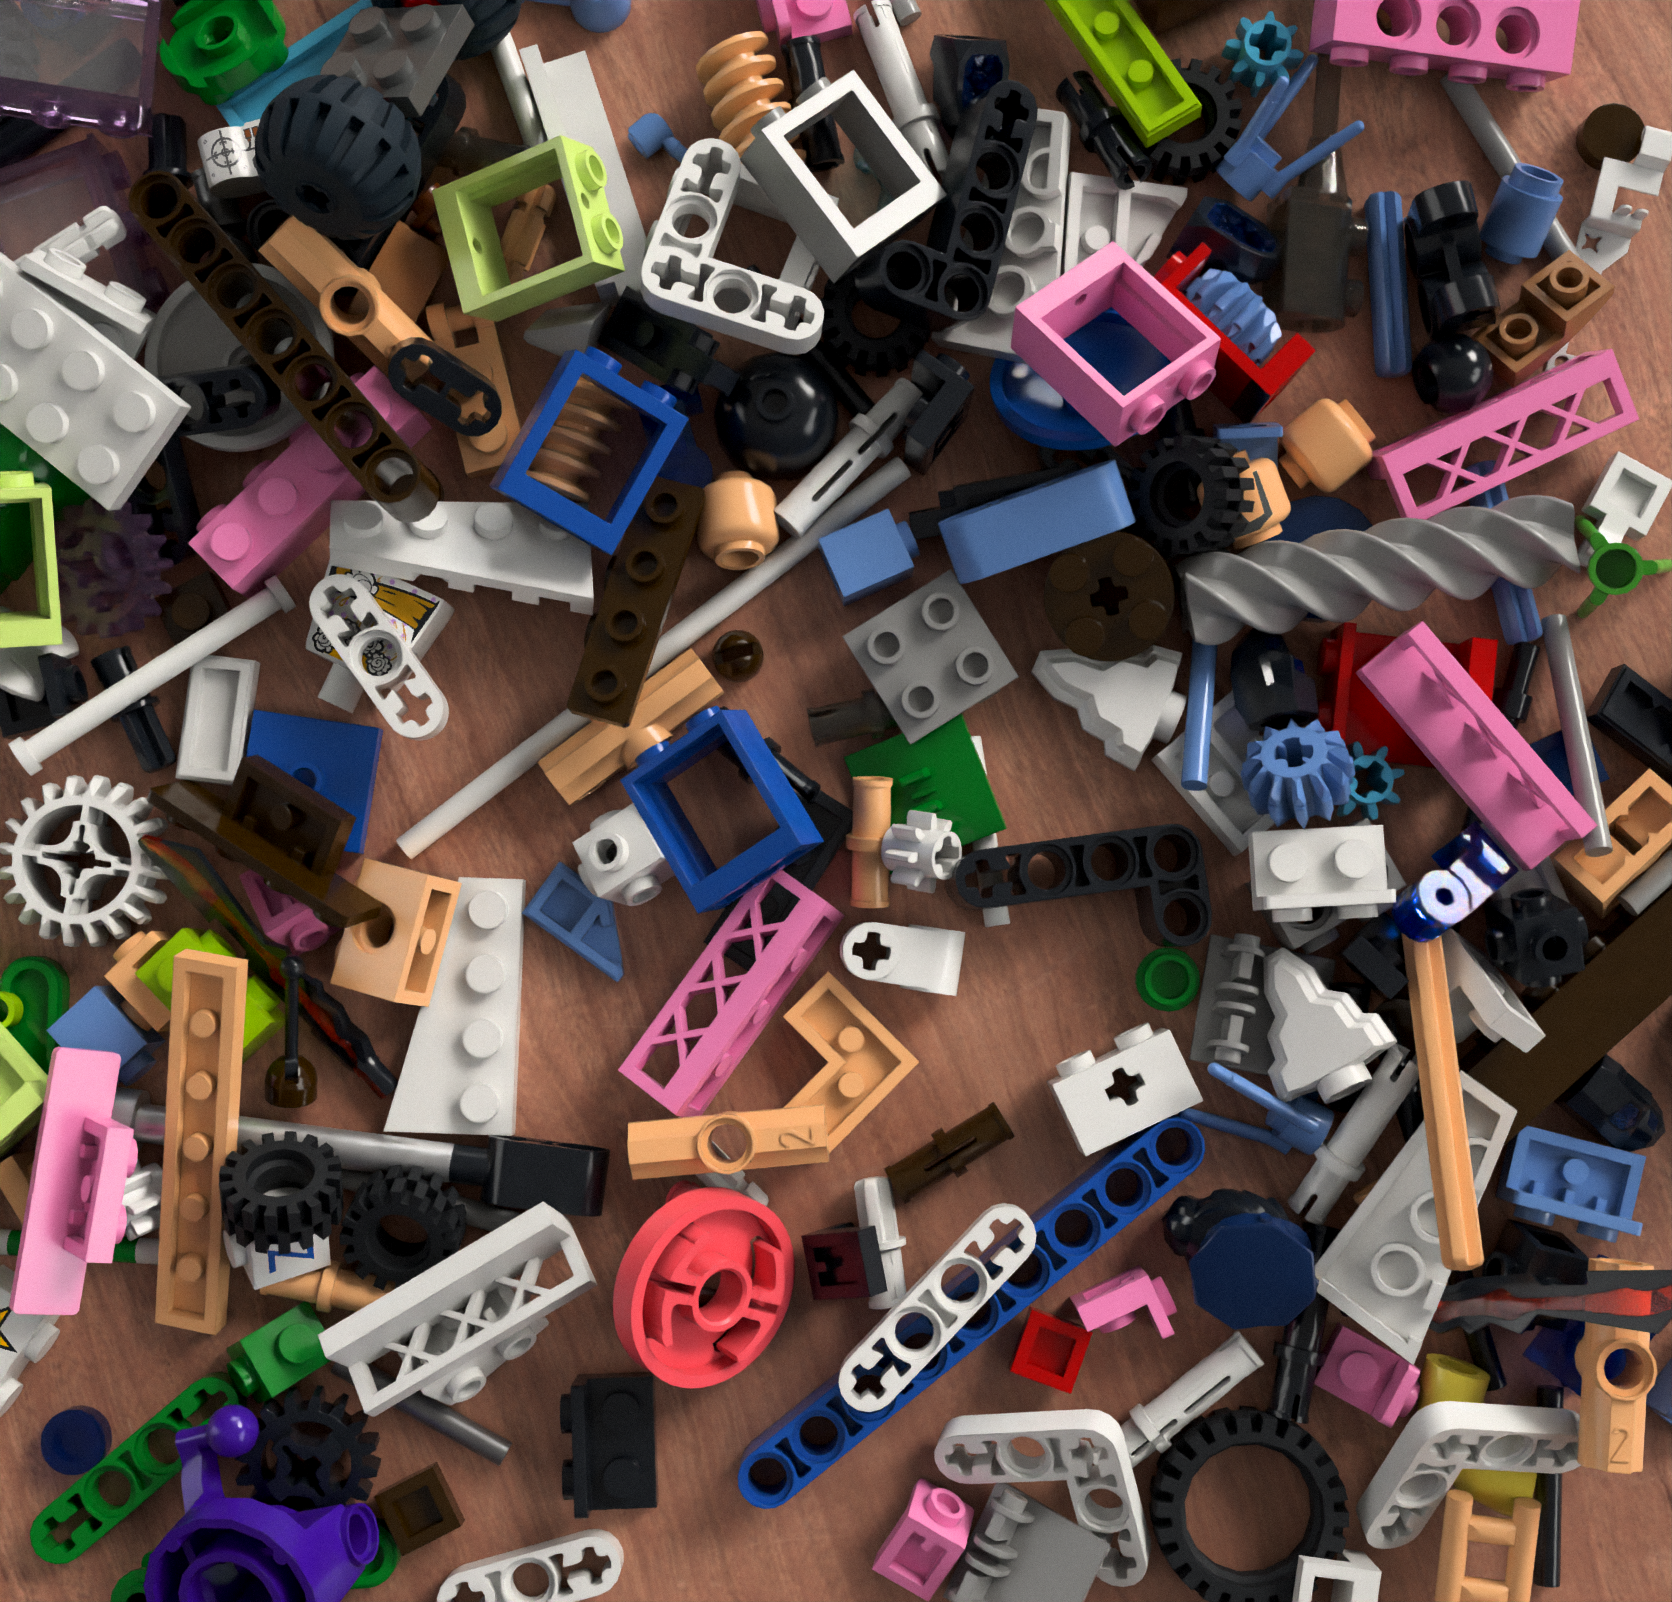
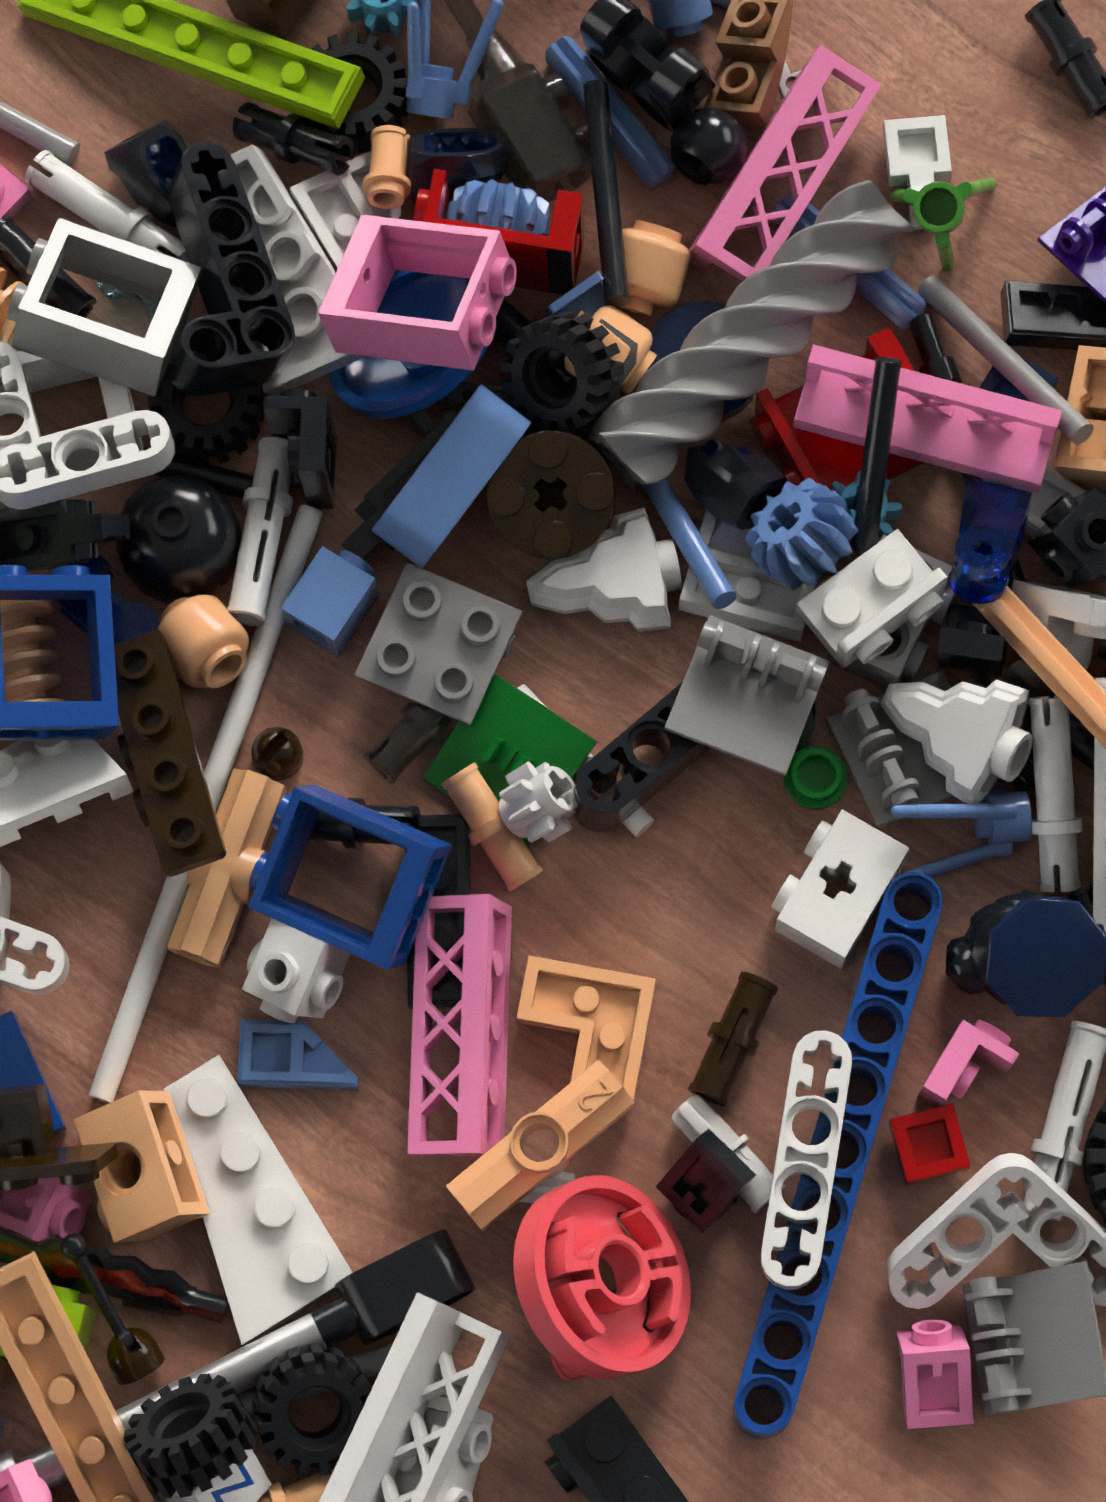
camera: 30 degrees left, 10 degrees down
(914, 958) = (594, 897): white piece -> none
(1156, 222) = (387, 180): none -> light nougat pin
(1156, 882) = (746, 695): none -> light grey hinge
(1336, 359) = (606, 193): none -> black bar
(1412, 749) = (876, 452): none -> black bar

